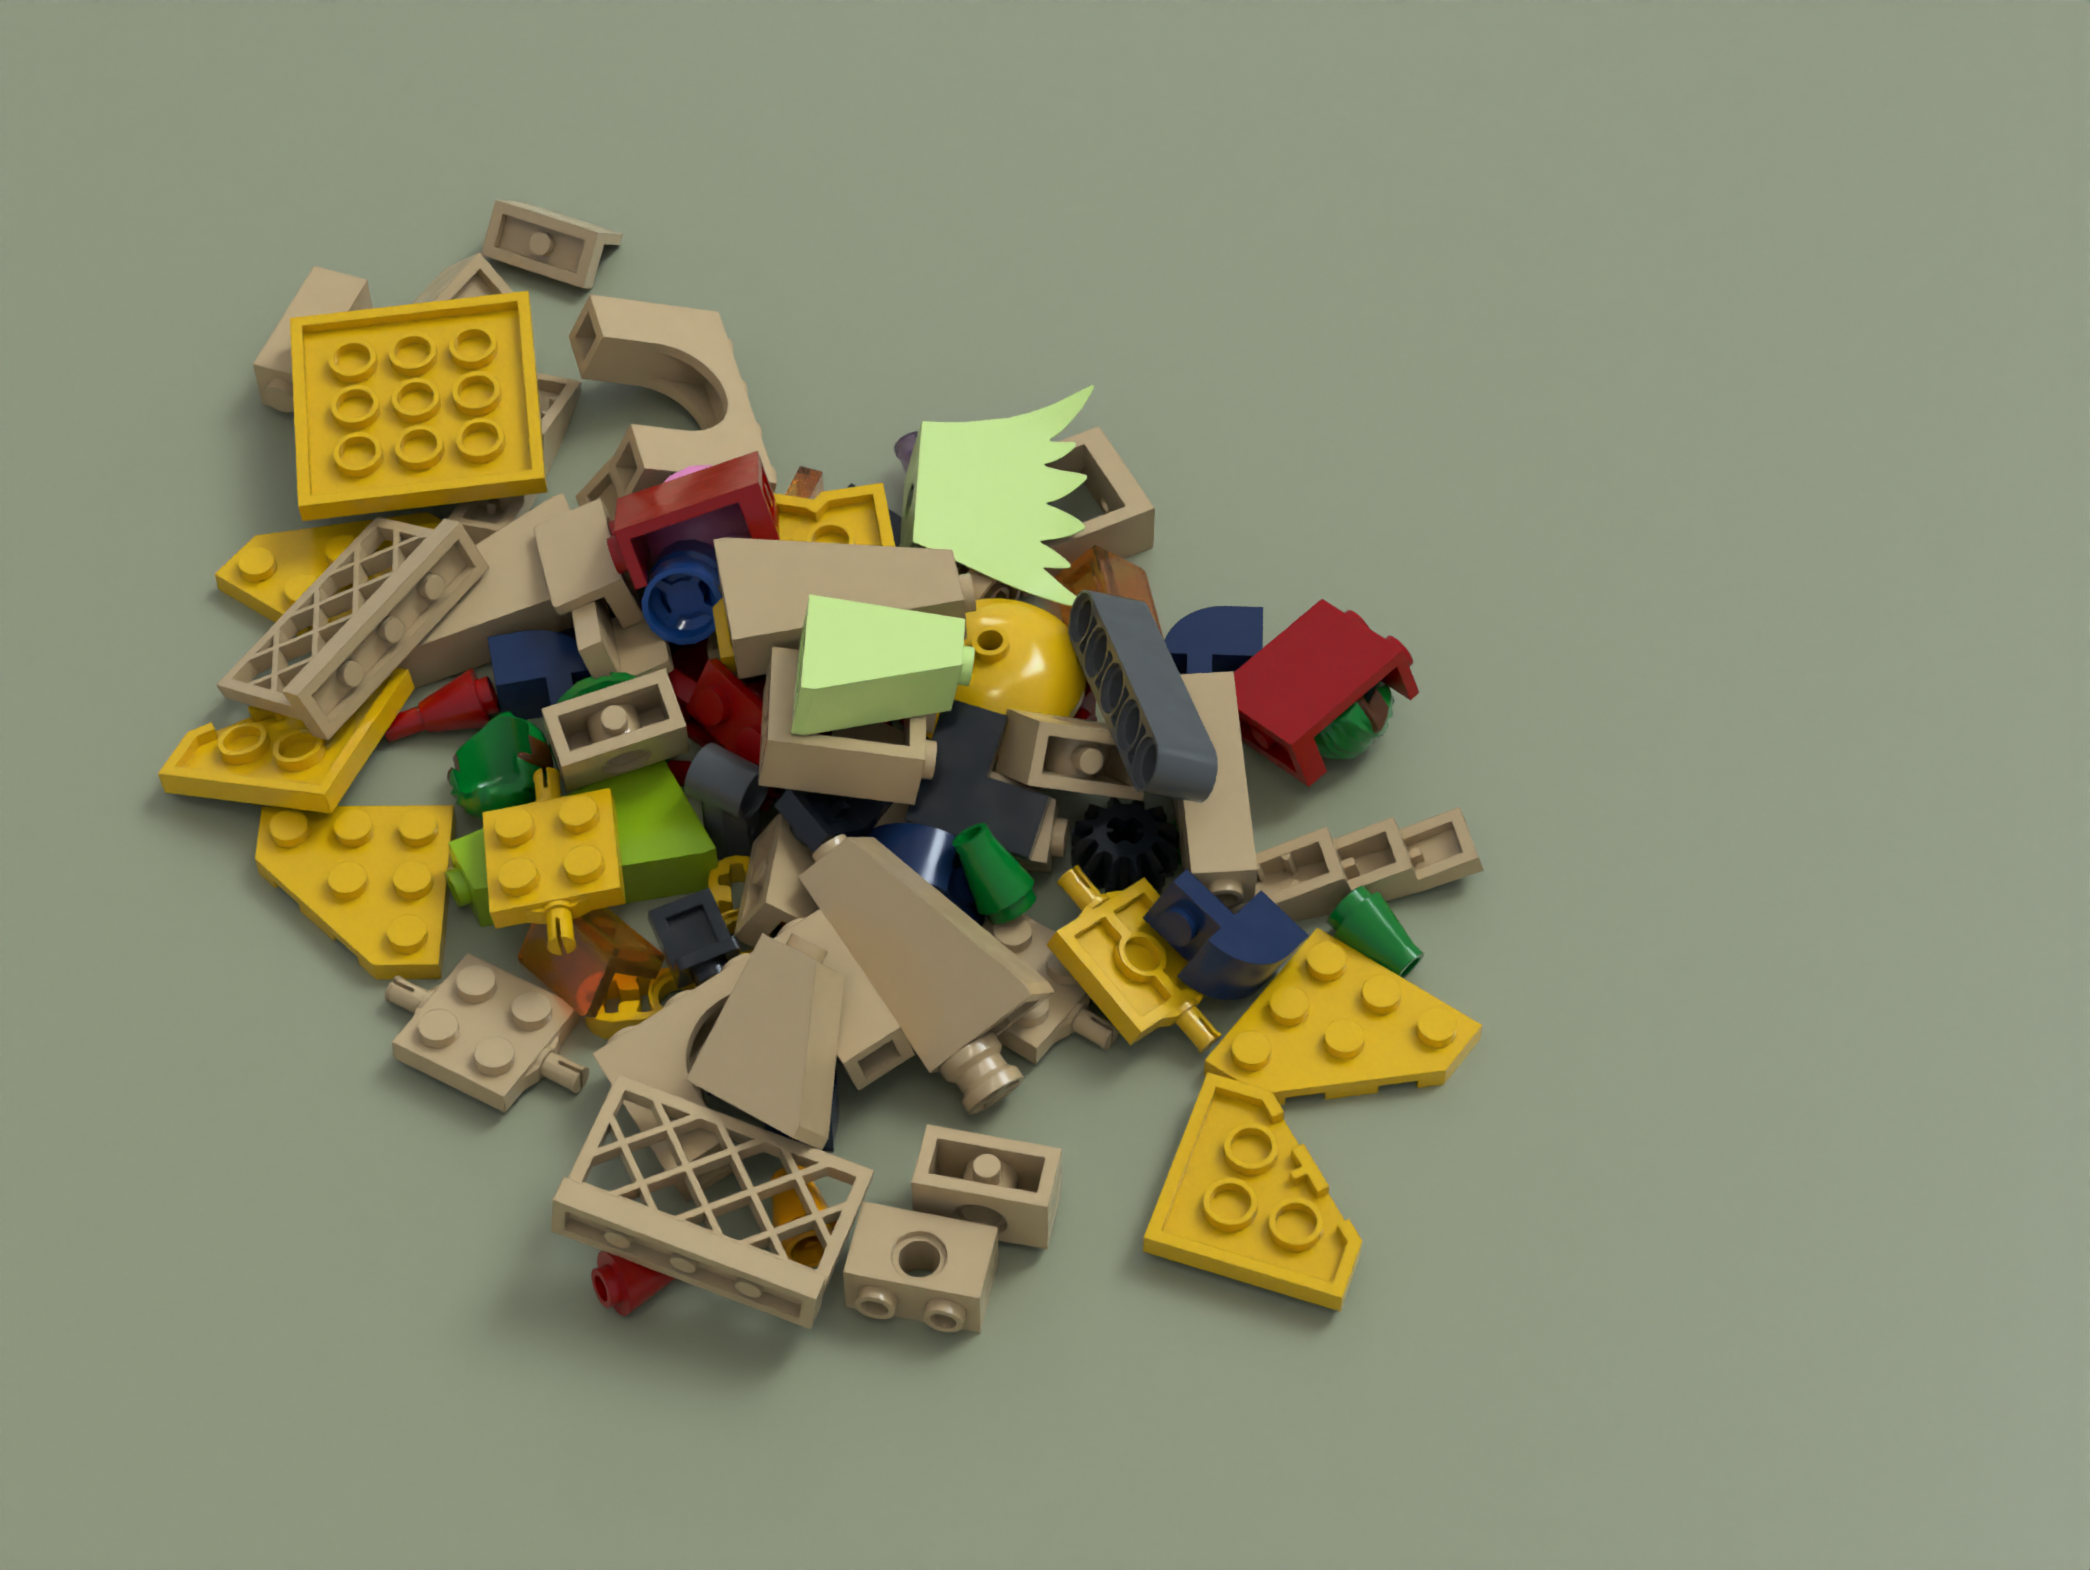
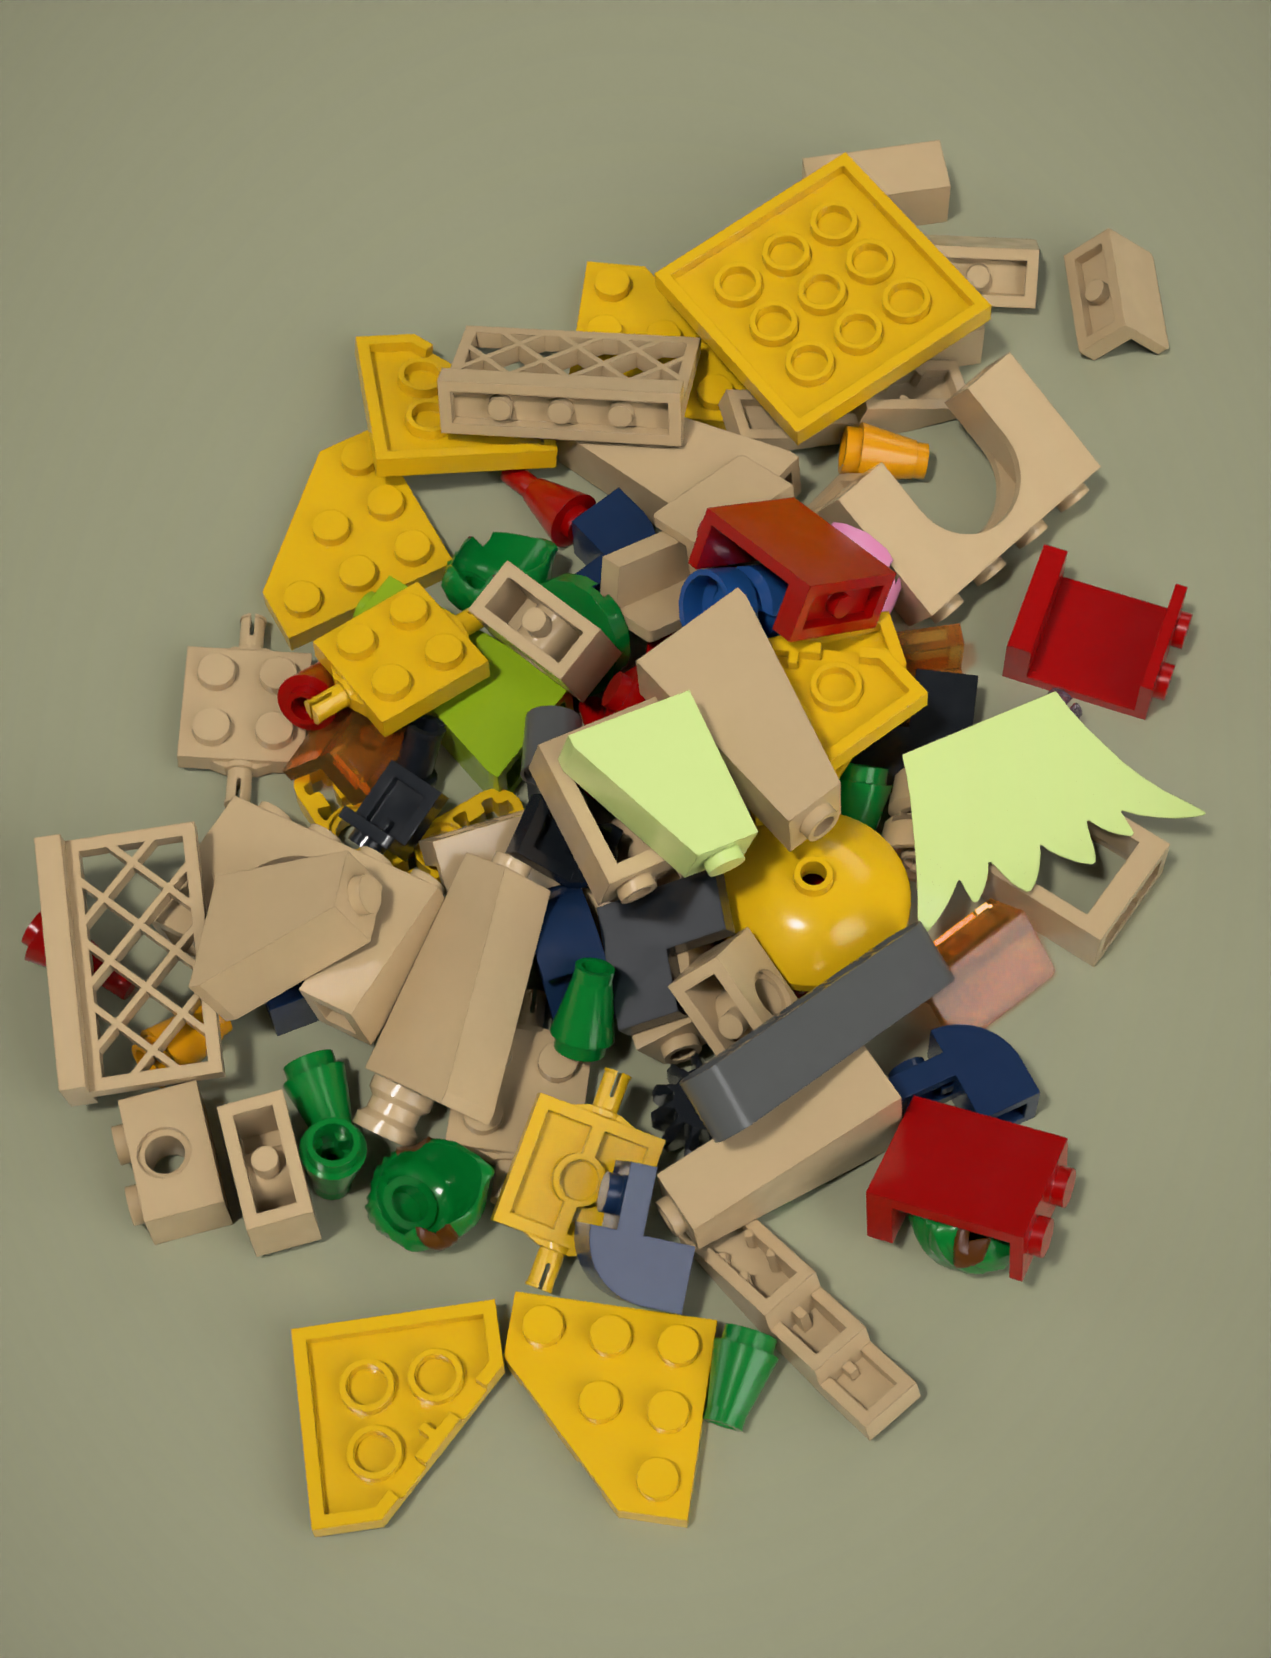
camera: 65 degrees right, 10 degrees up
(519, 954) = (301, 687): none -> red cone
(579, 457) = (870, 445): none -> light orange cone
(639, 898) = (421, 747): none -> black pin
(866, 402) = (1094, 640): none -> red panel
(911, 1114) = (318, 1087): none -> green cone
(1005, 1113) = (332, 1156): none -> green cone
(1081, 1075) = (428, 1194): none -> green hair

